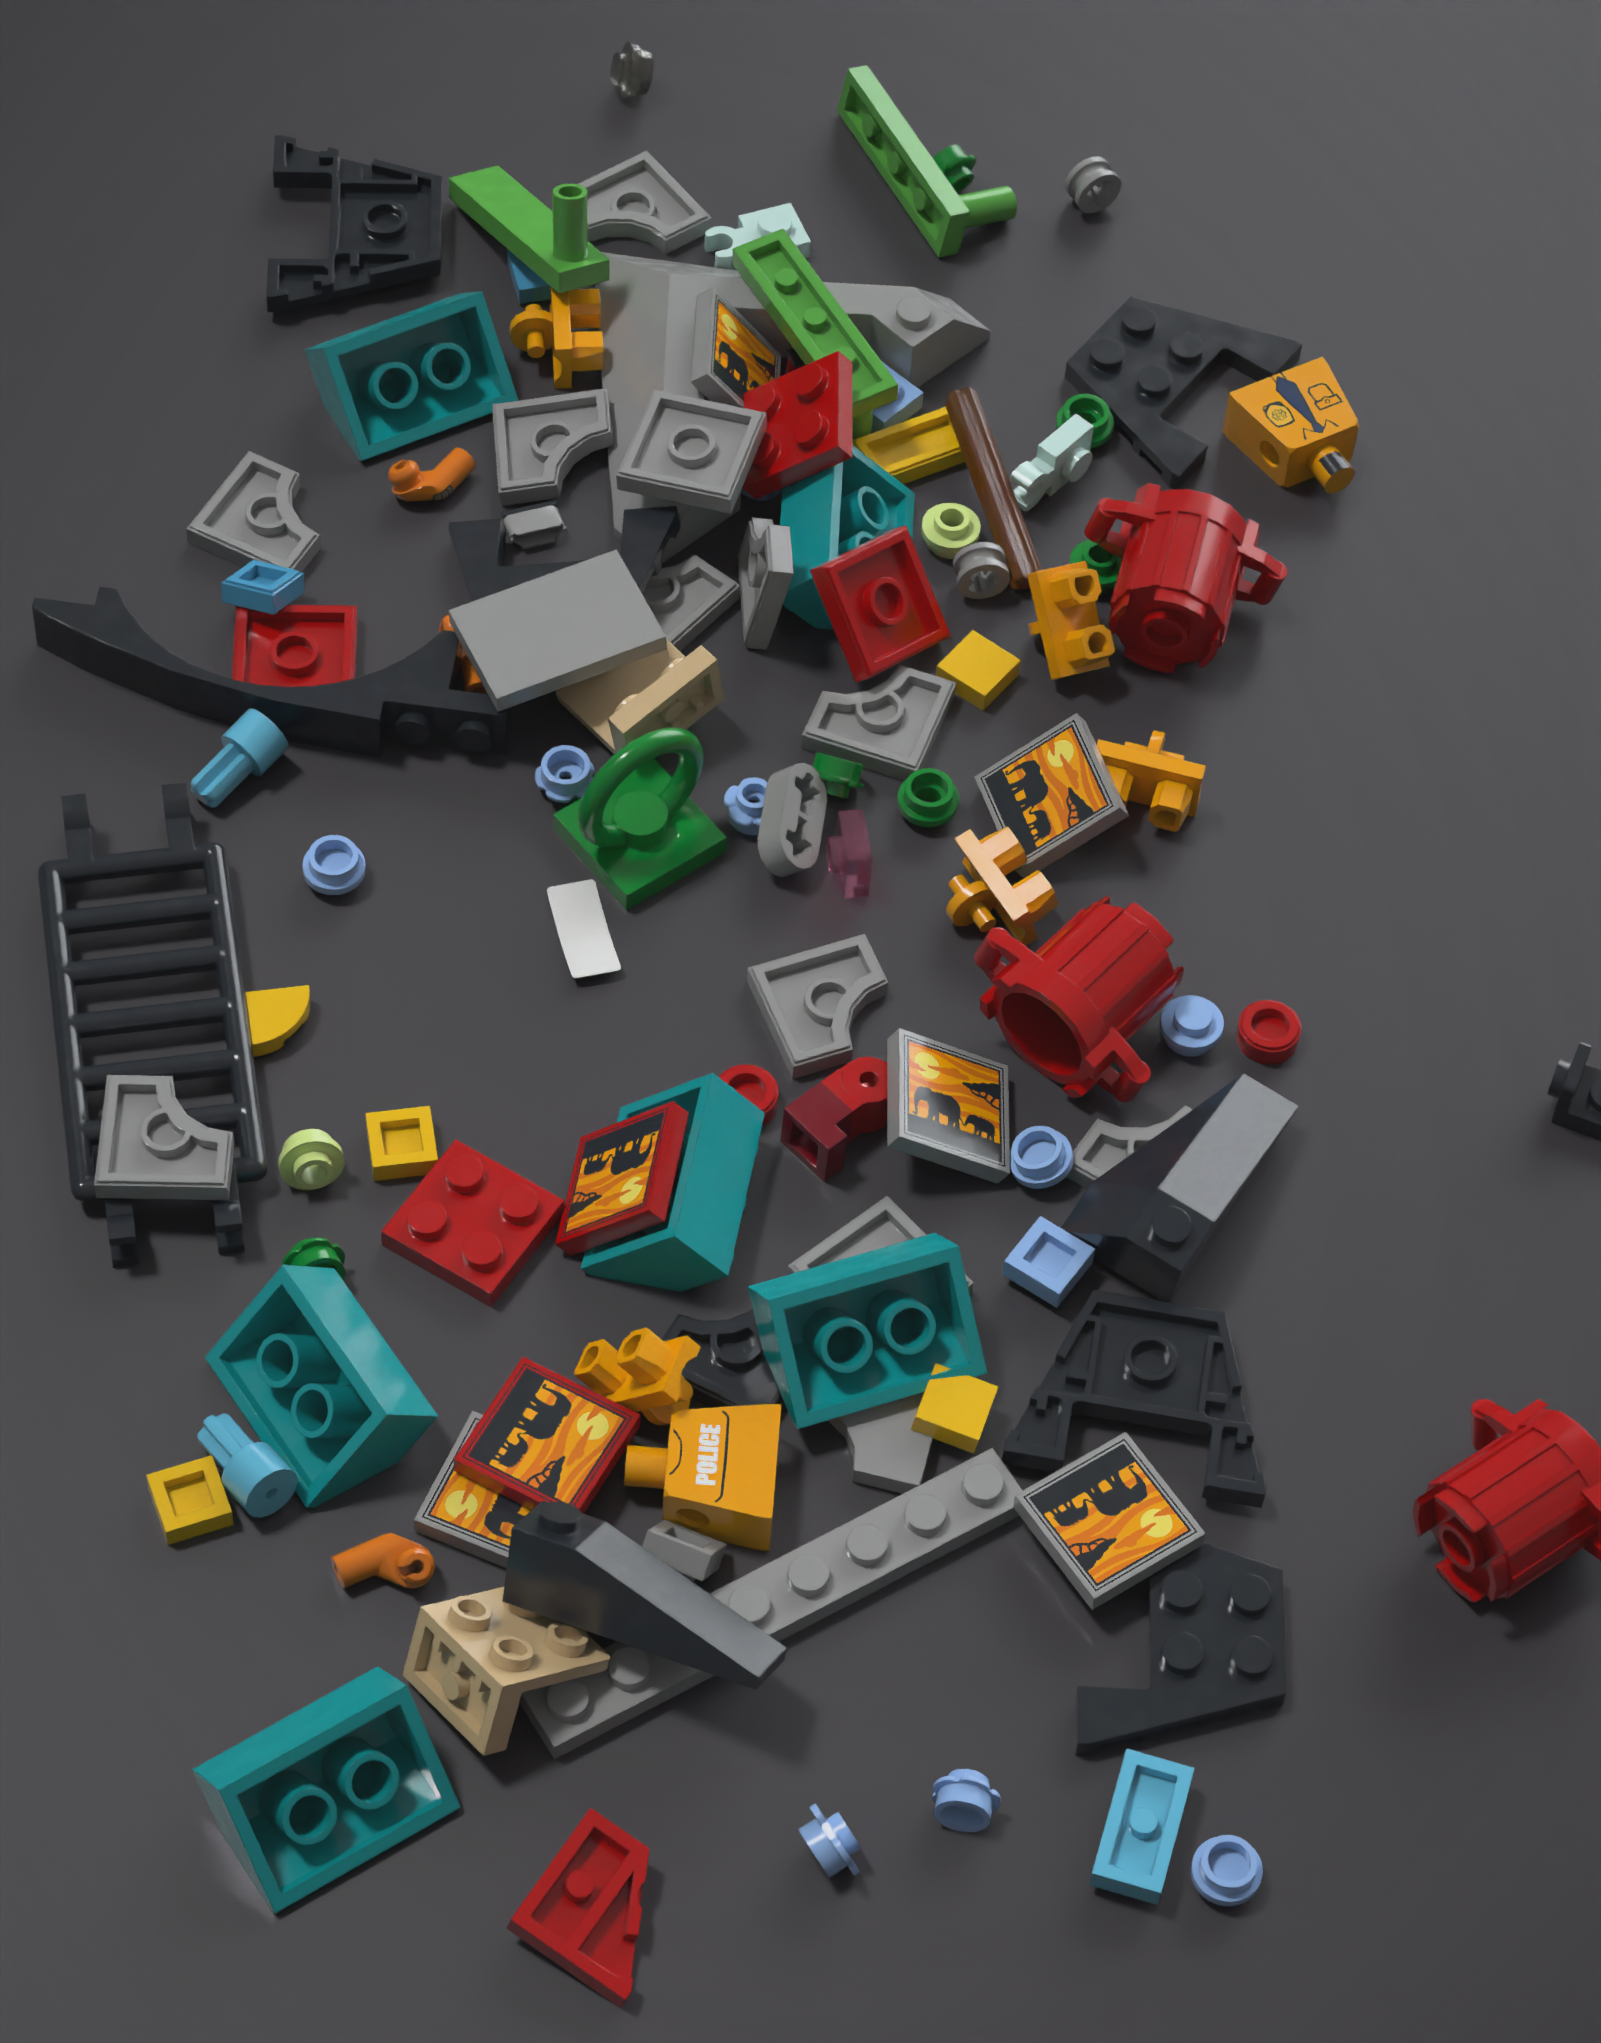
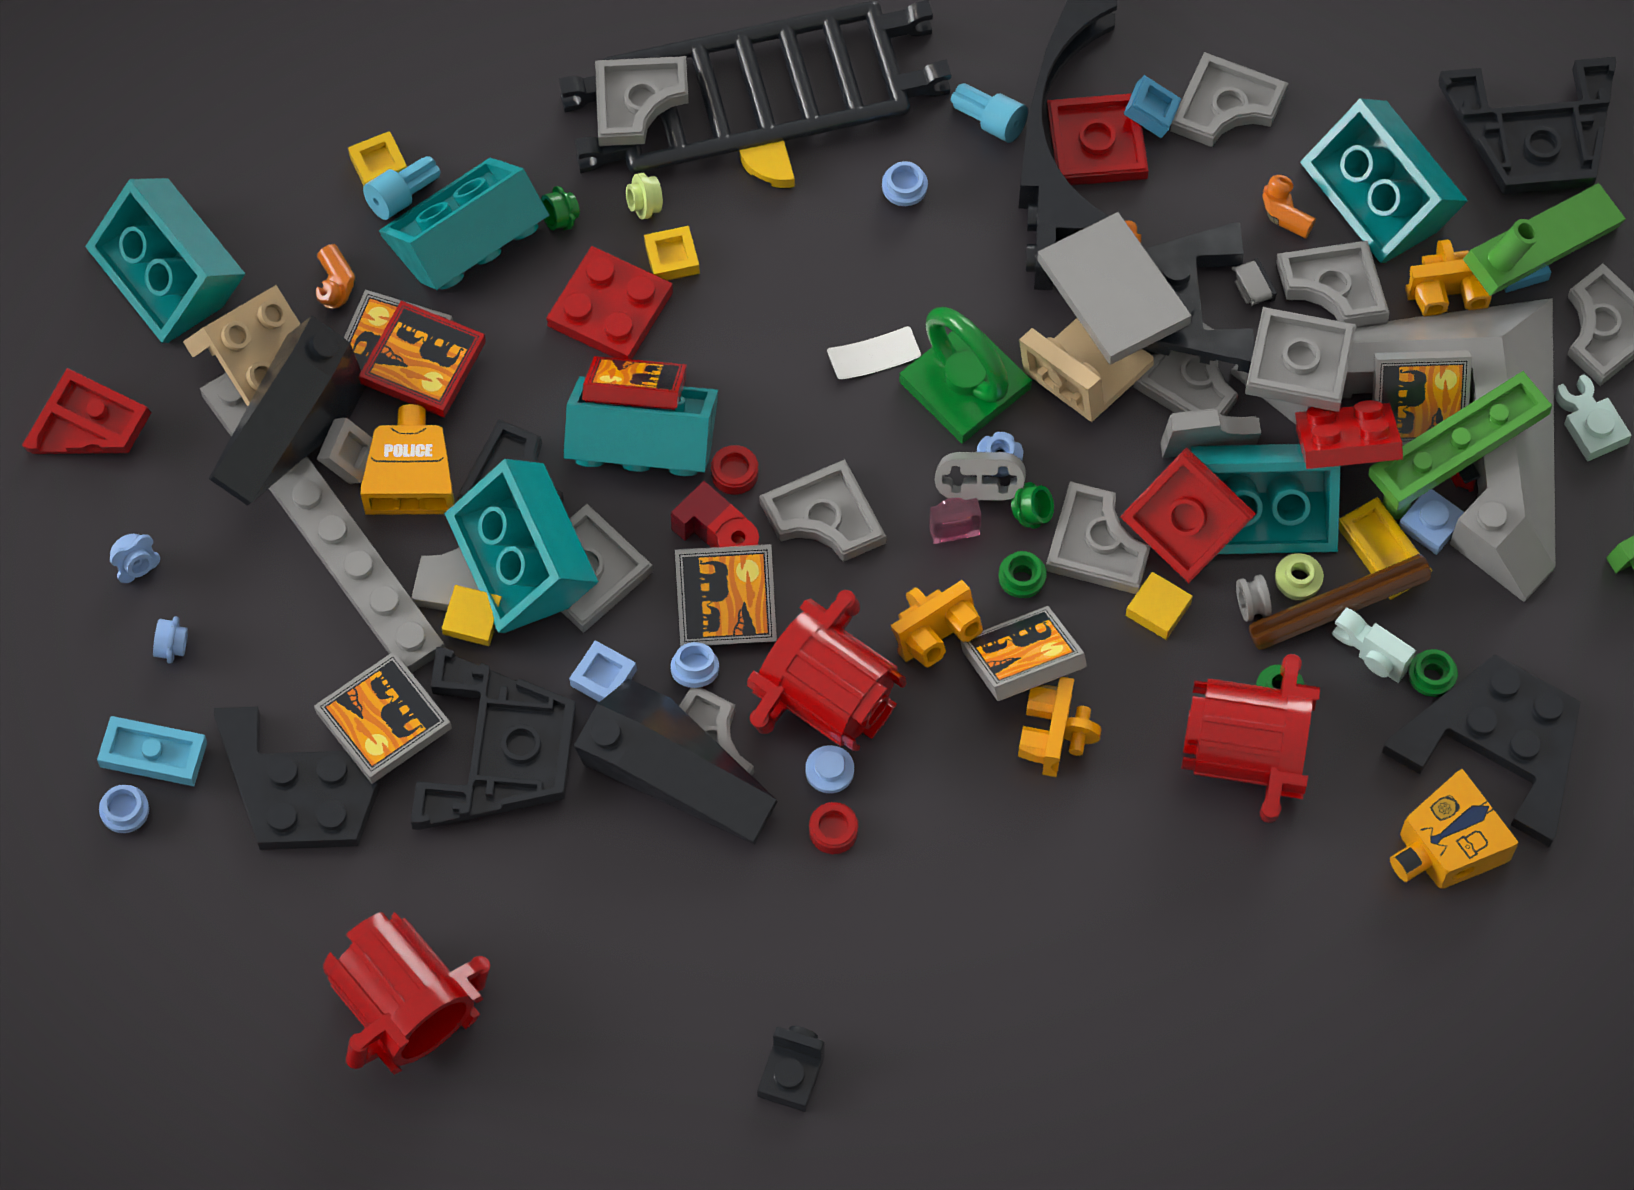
camera: 90 degrees right, 10 degrees up
(560, 763) = (1008, 314): light blue plate -> none
(641, 1373) = (474, 409): light orange hips -> none
(1069, 619) = (1201, 657): light orange hips -> none

